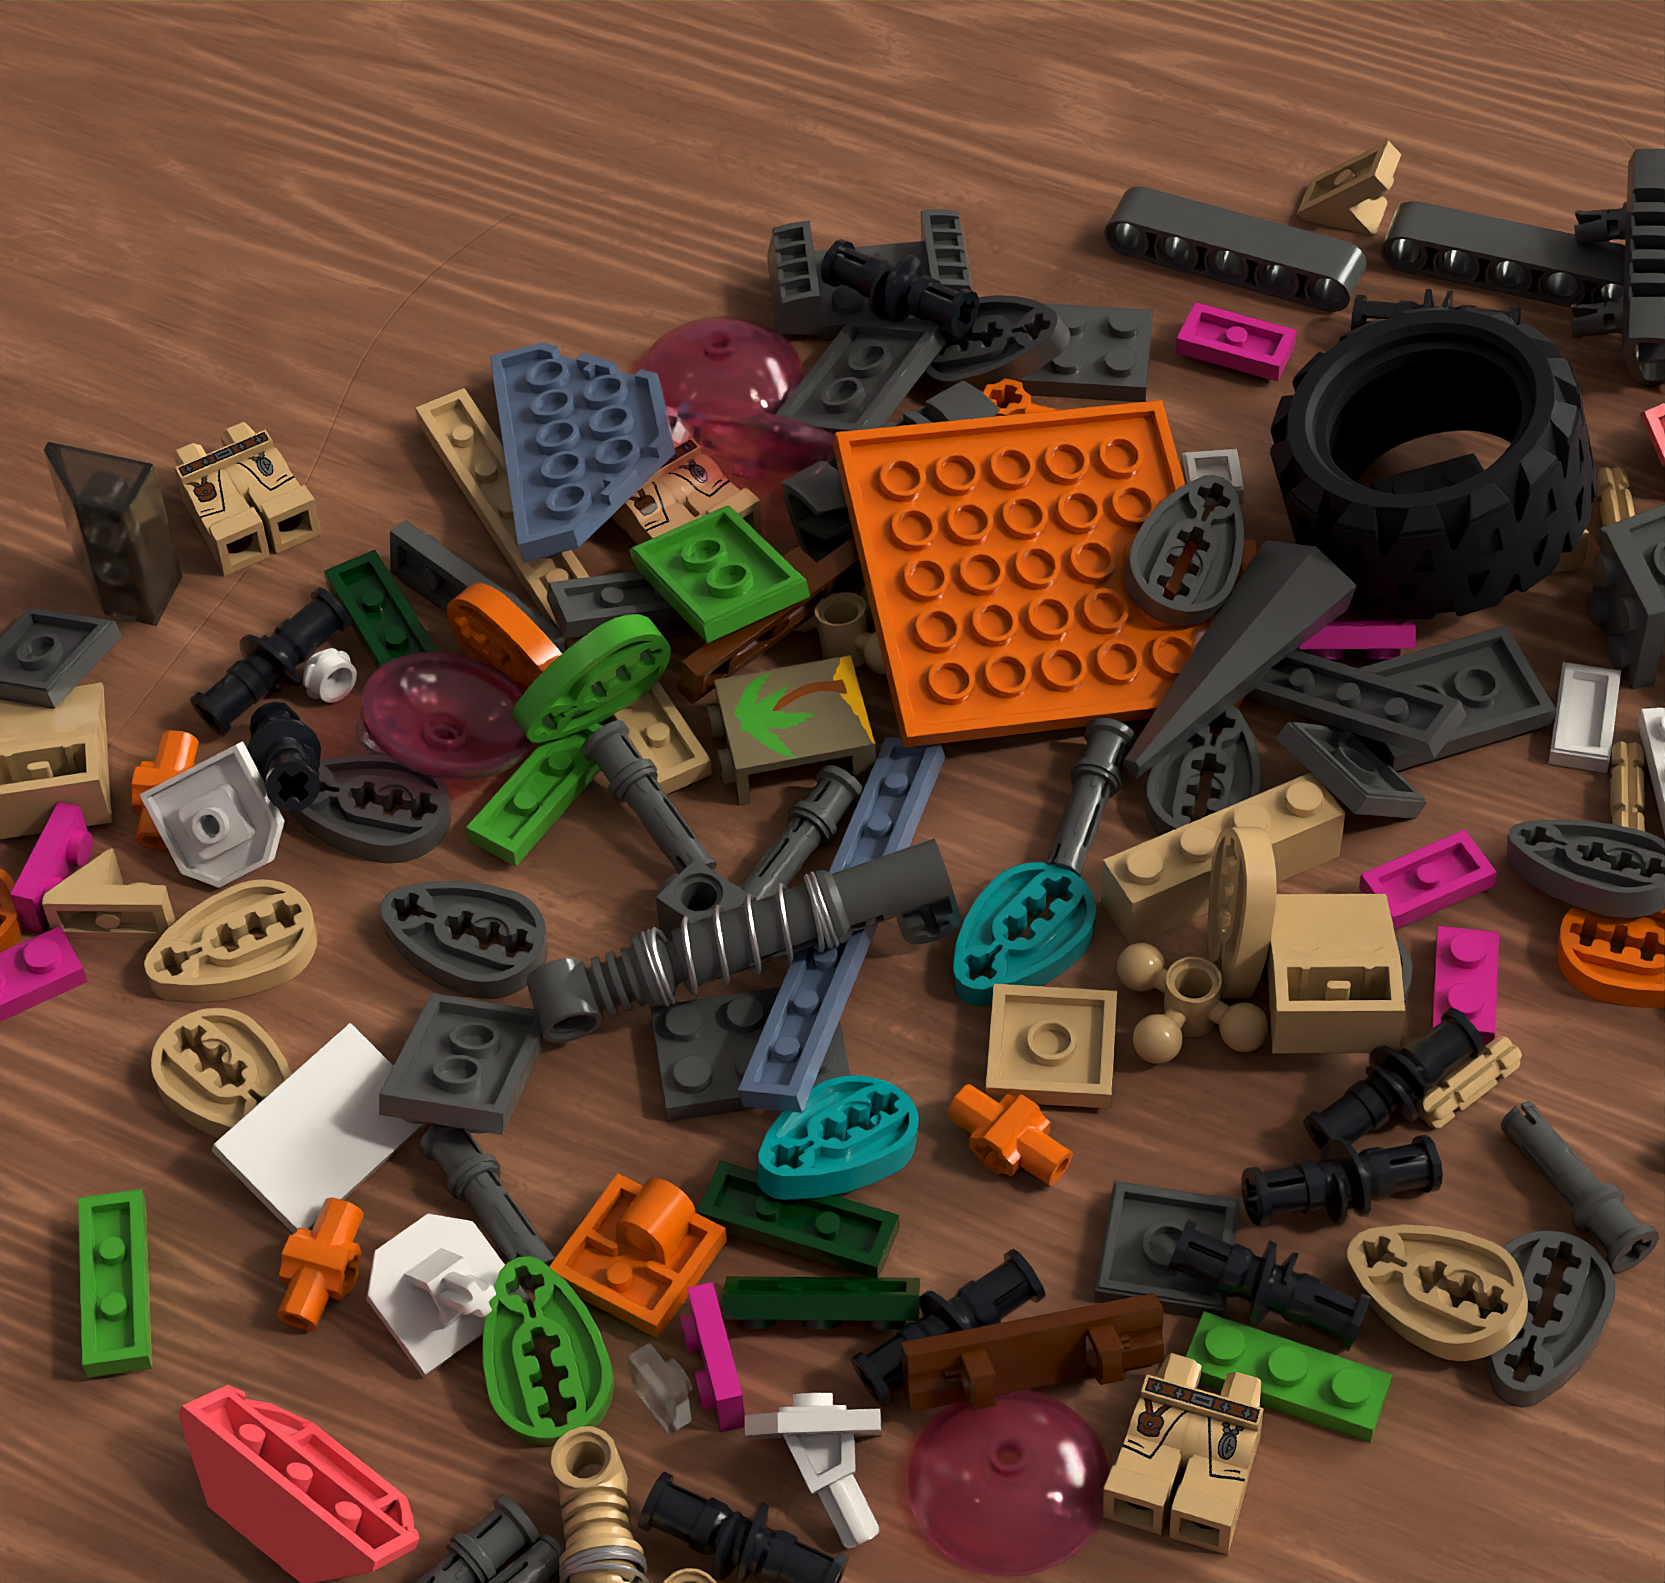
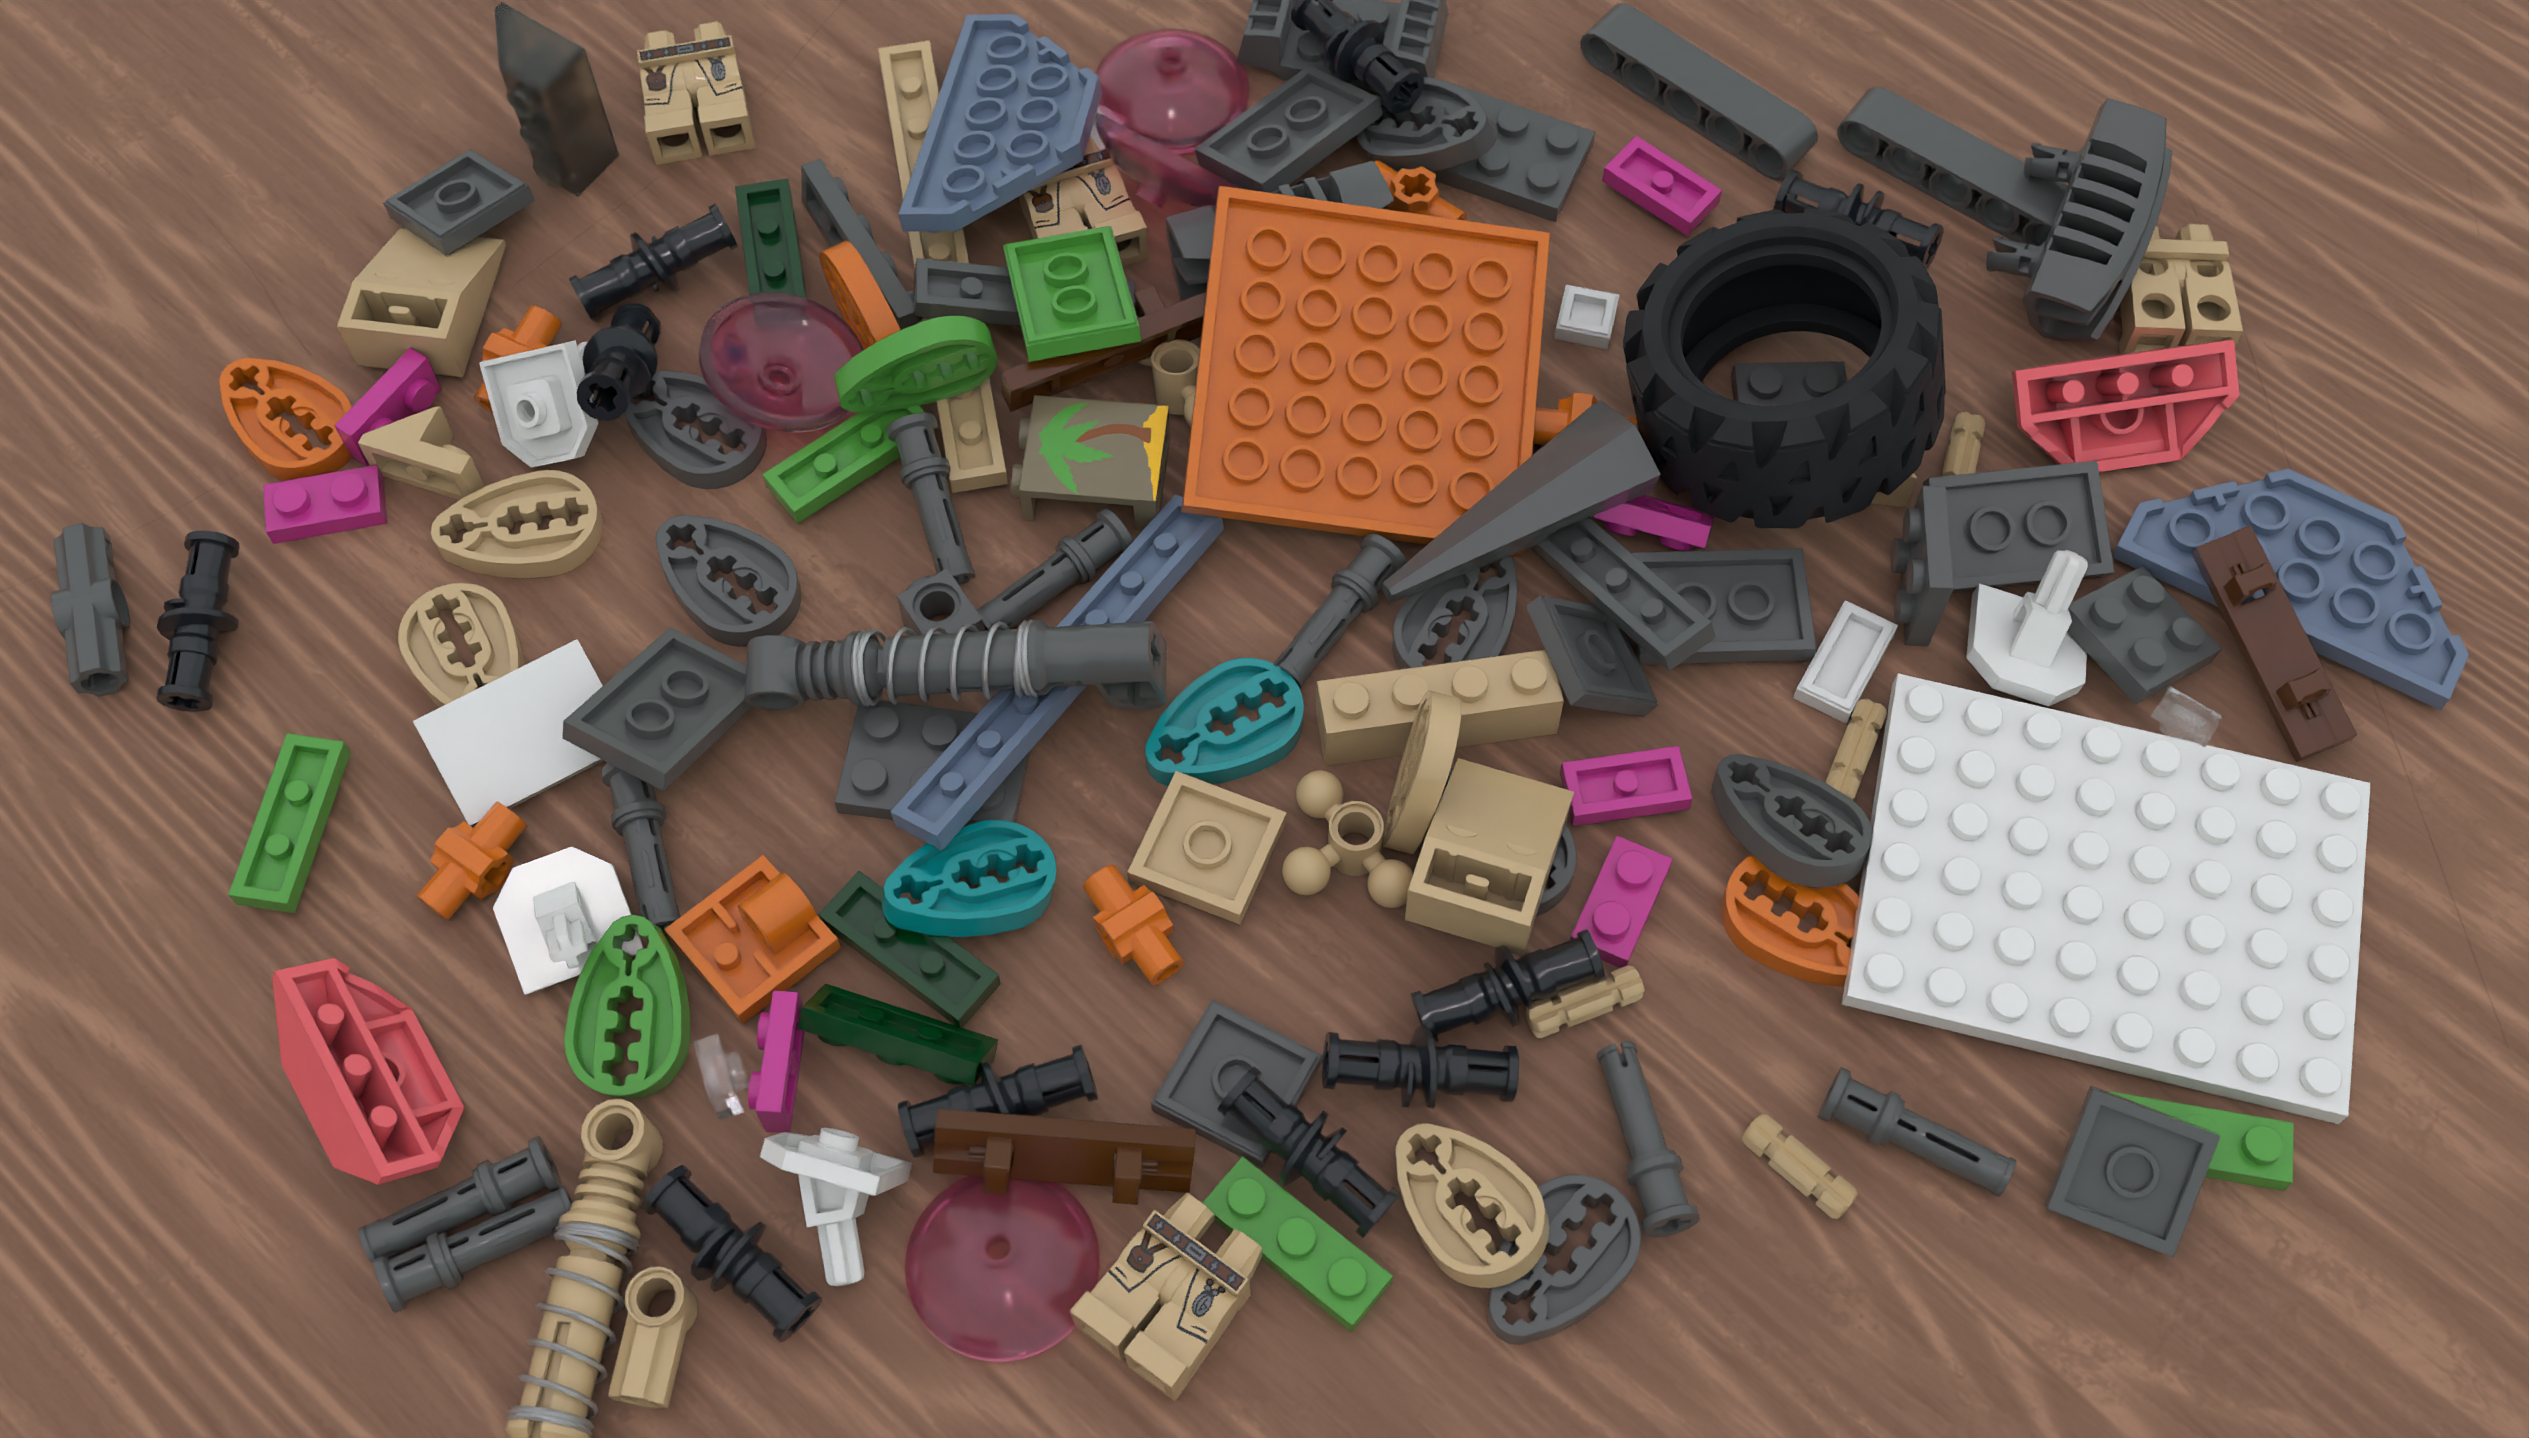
camera: 15 degrees right, 10 degrees up
(329, 675) = (703, 289): white plate -> none
(1161, 543) = (1494, 377): dark grey piece -> none
(1352, 192) = (1833, 62): tan slope -> none

